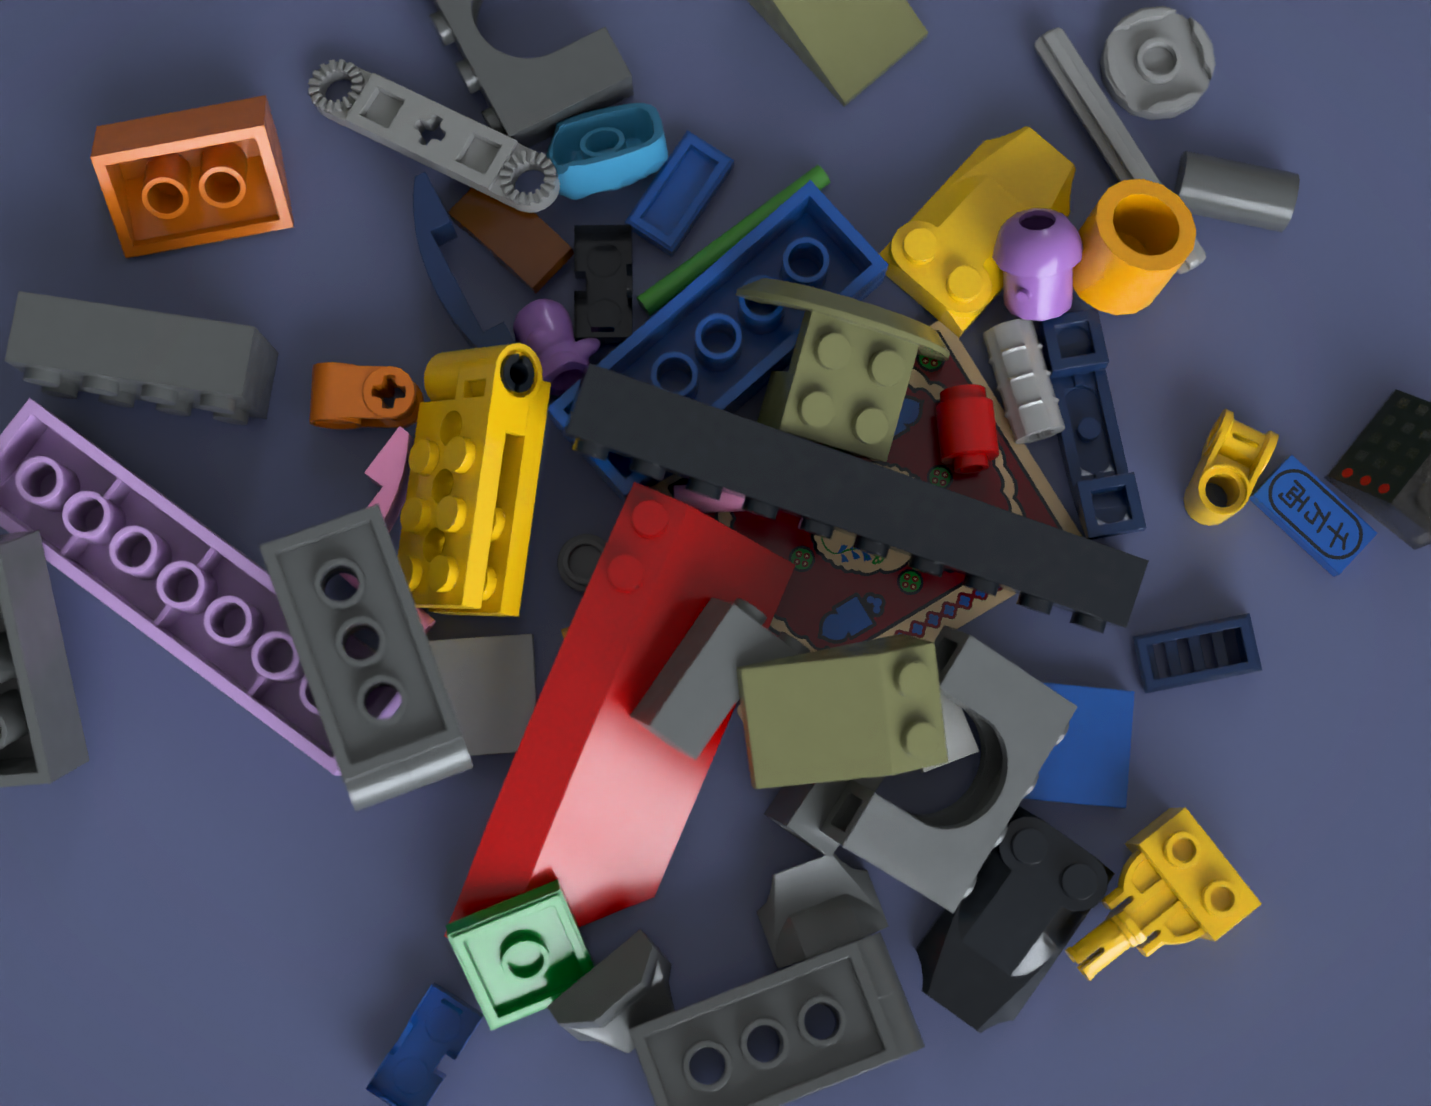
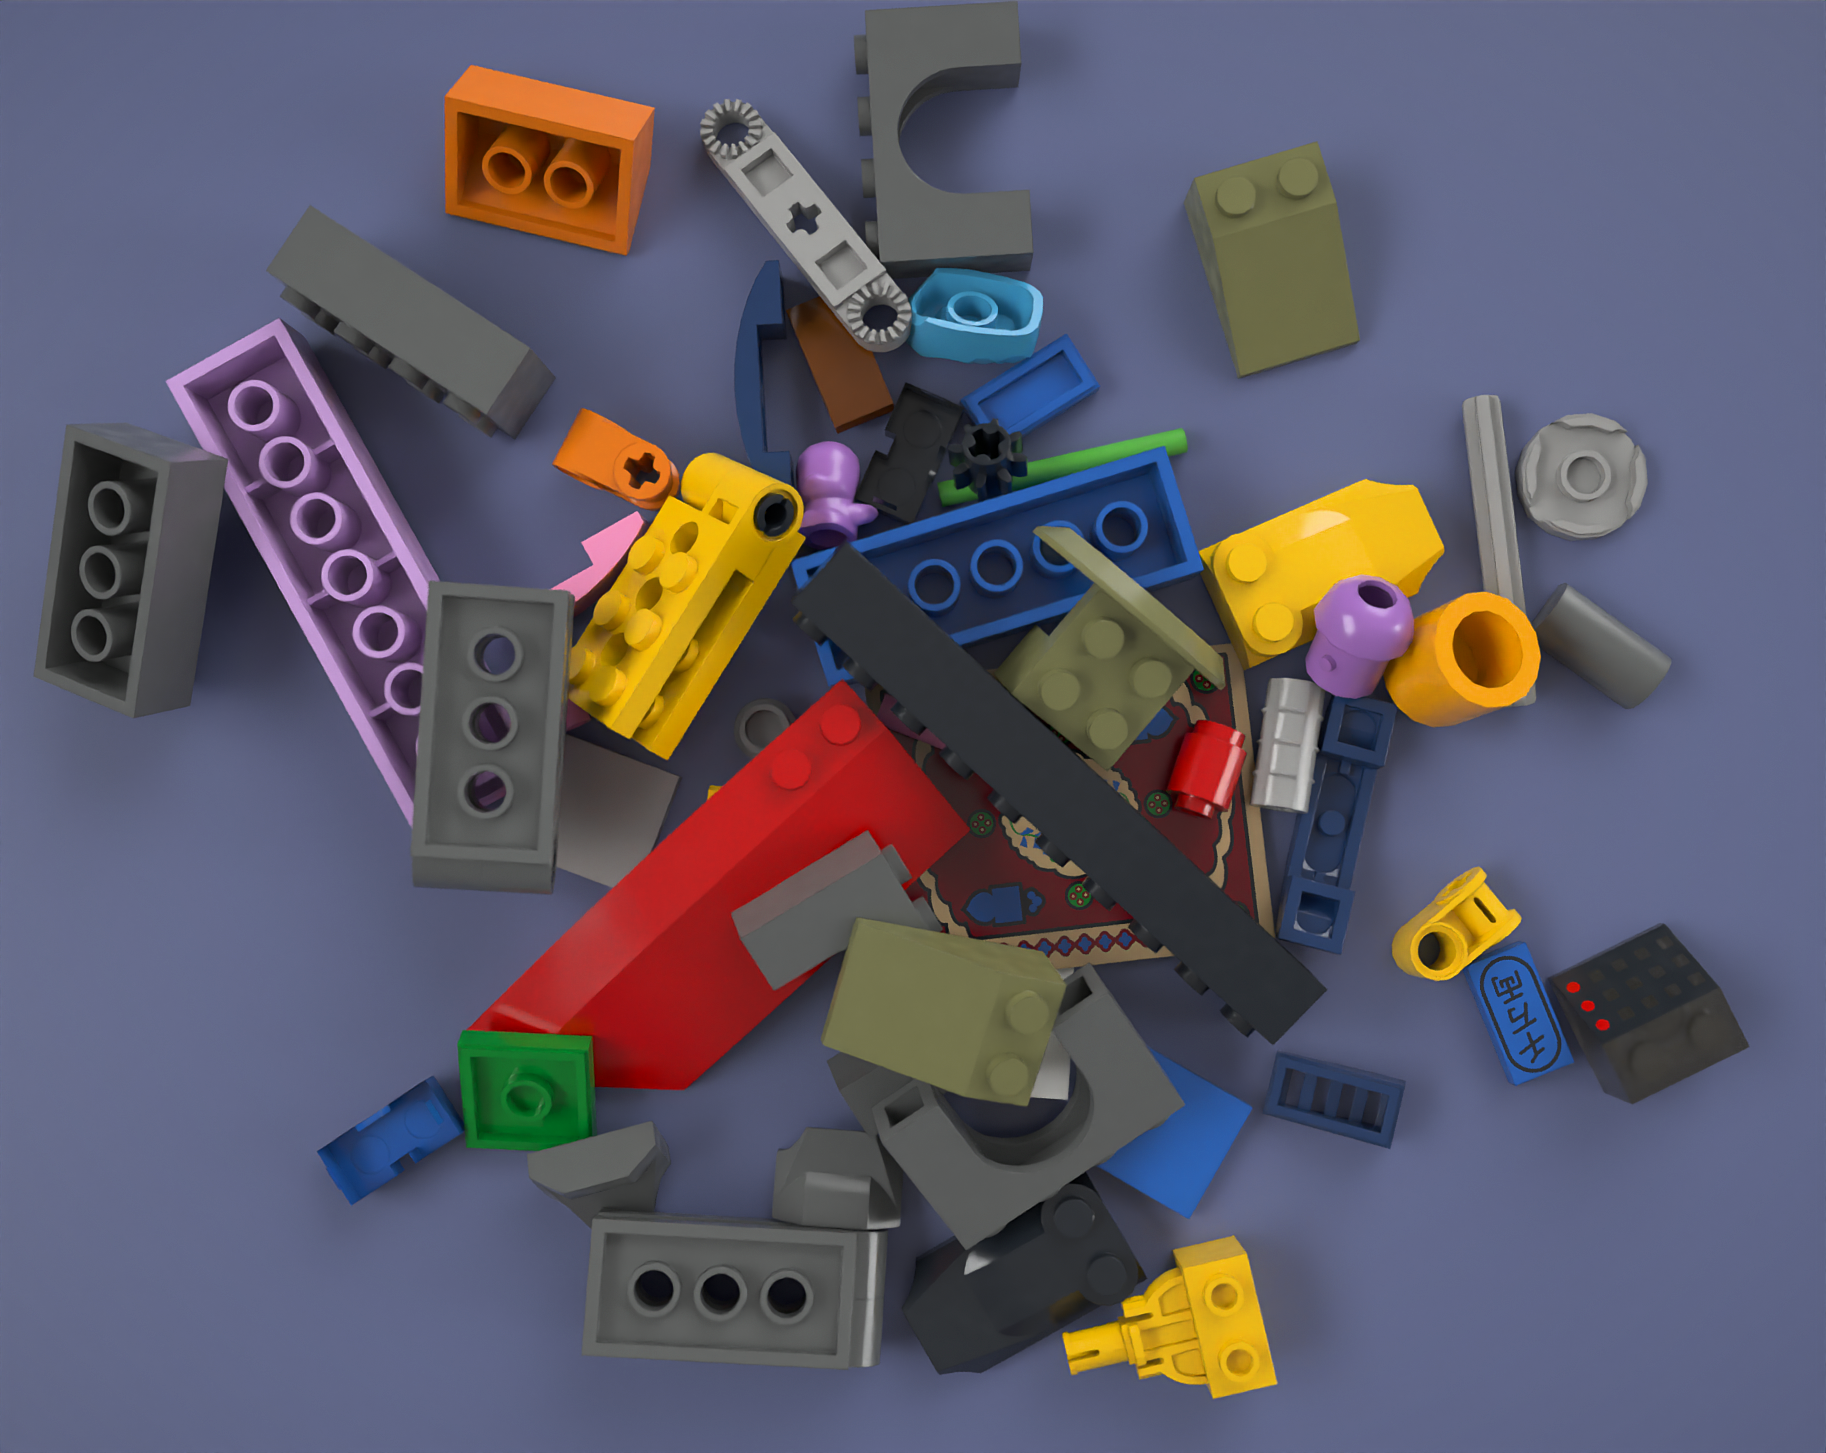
camera: 35 degrees right, 5 degrees up
(670, 257) = (987, 460): none -> black gear

